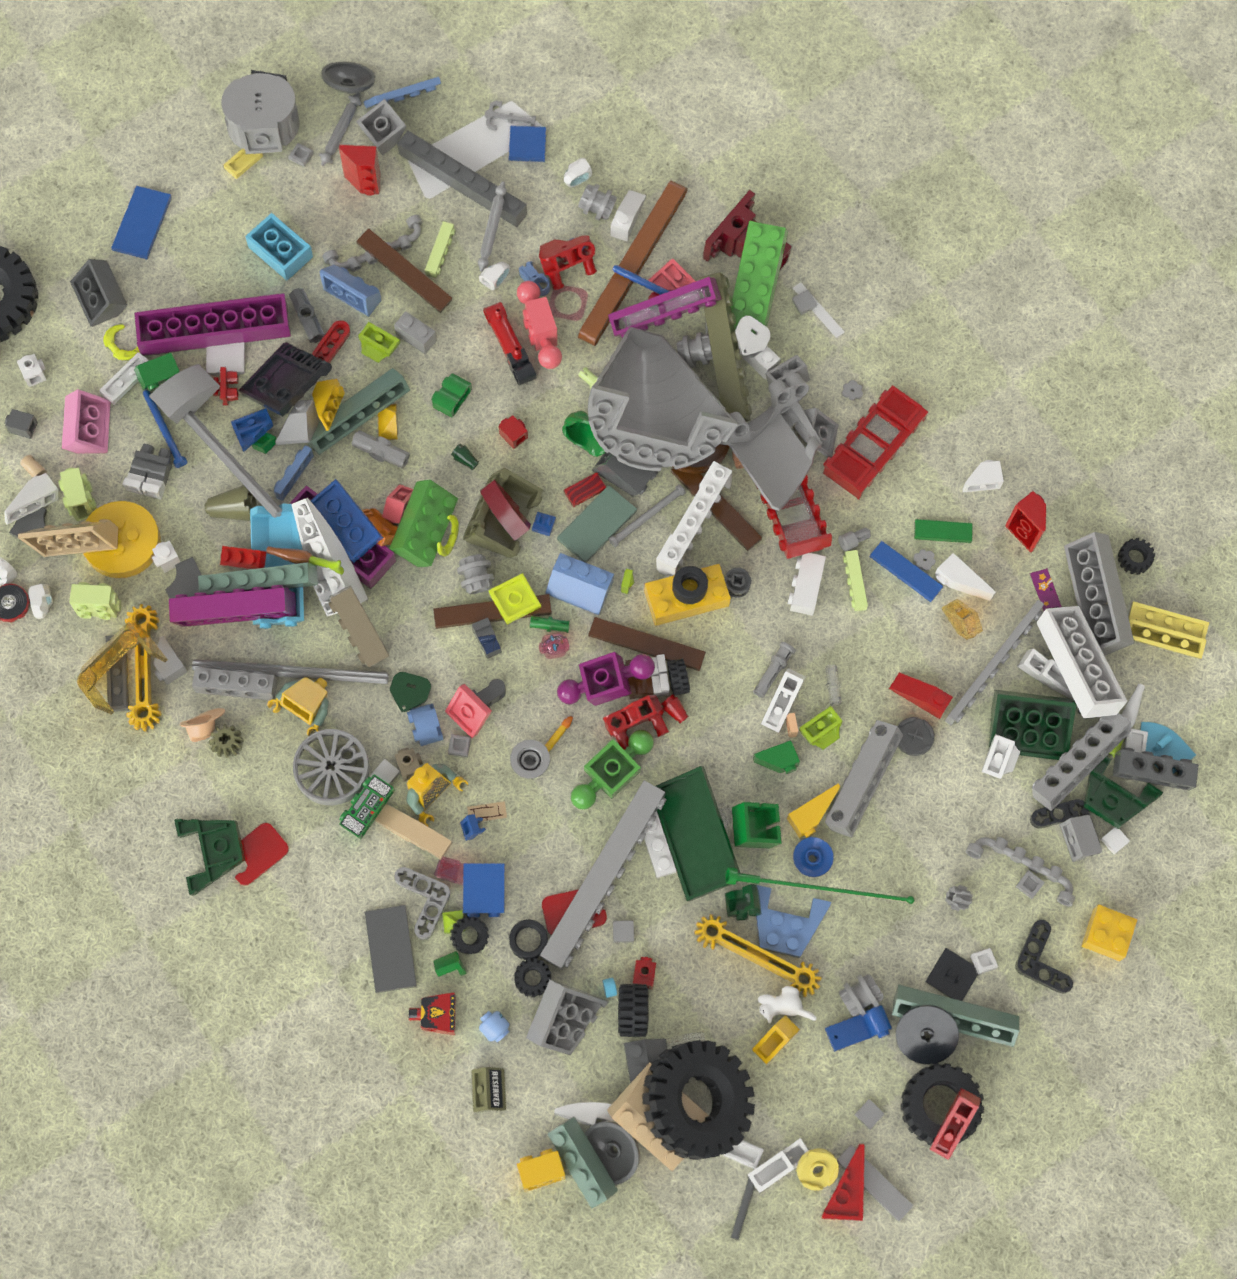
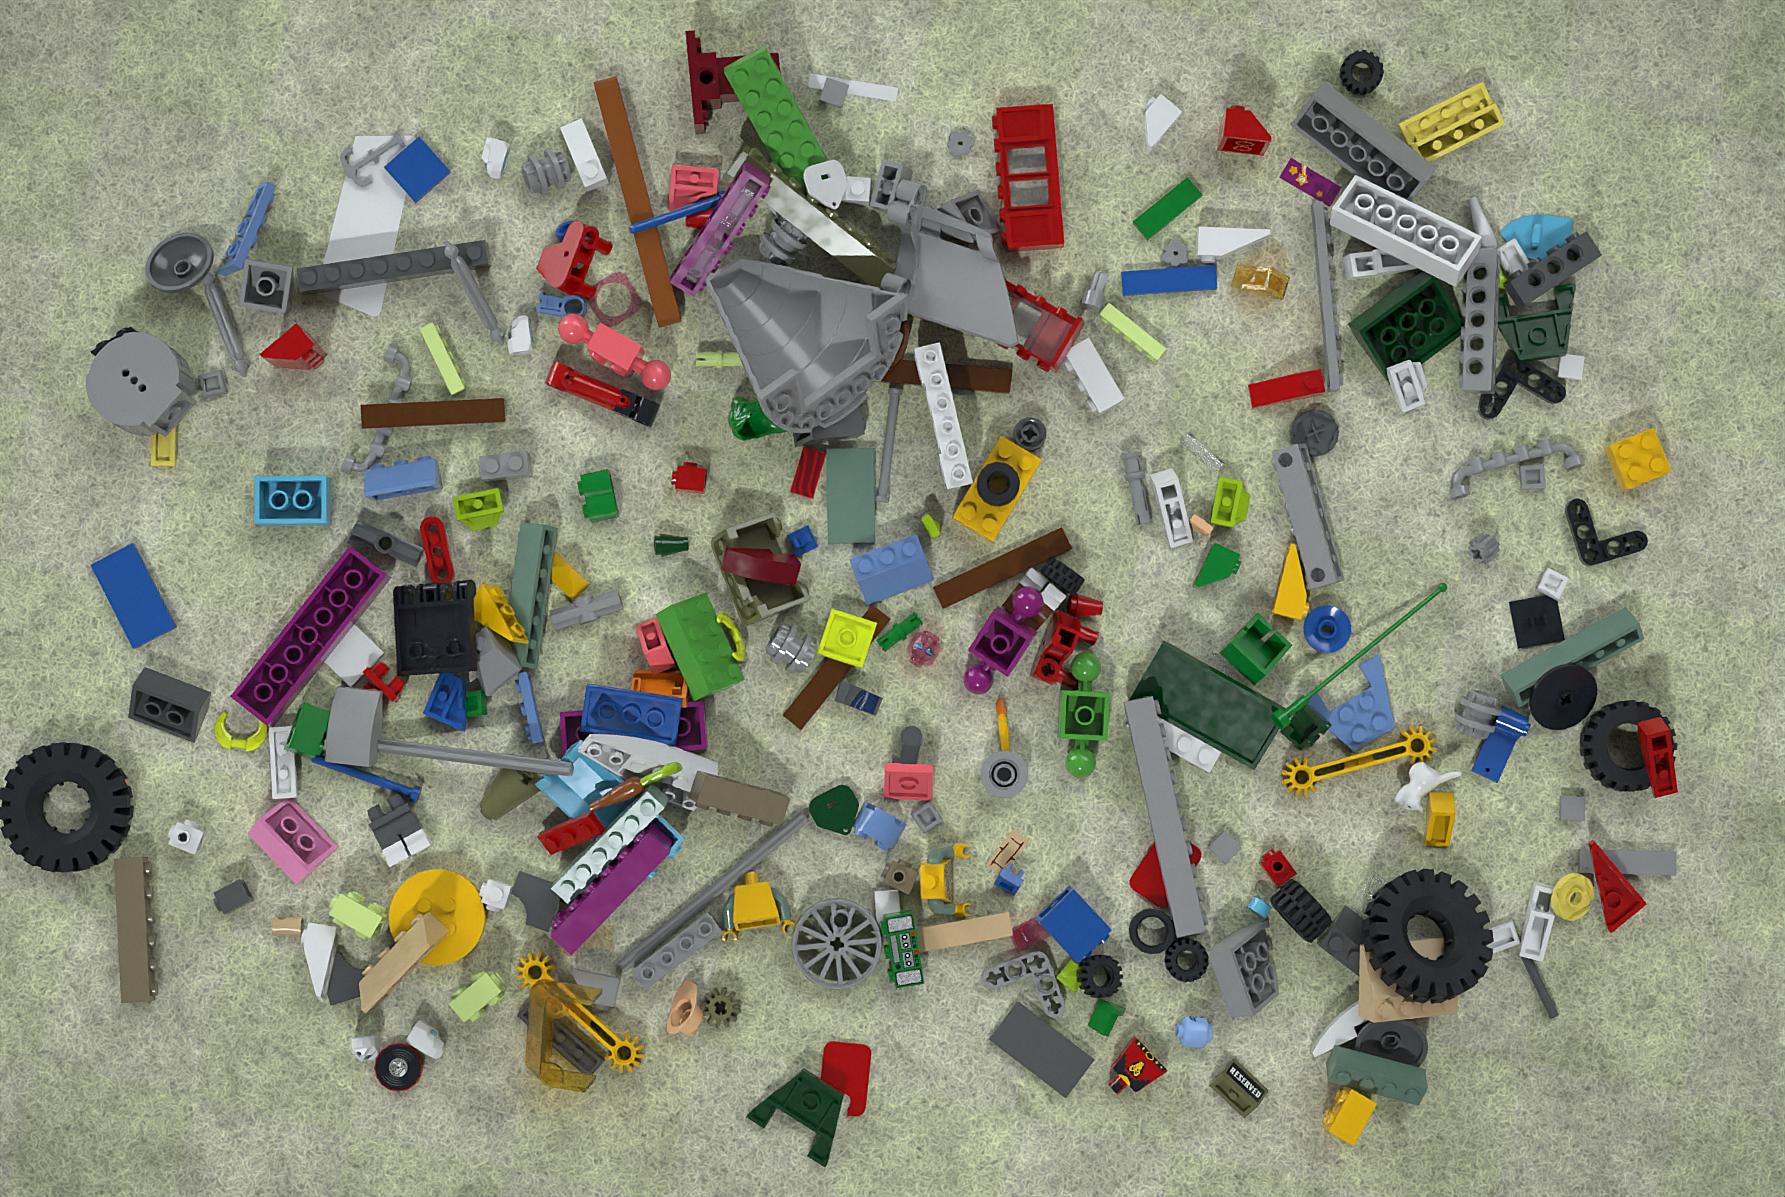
camera: 35 degrees left, 15 degrees up
(1080, 837) = (1541, 394): light grey panel -> none

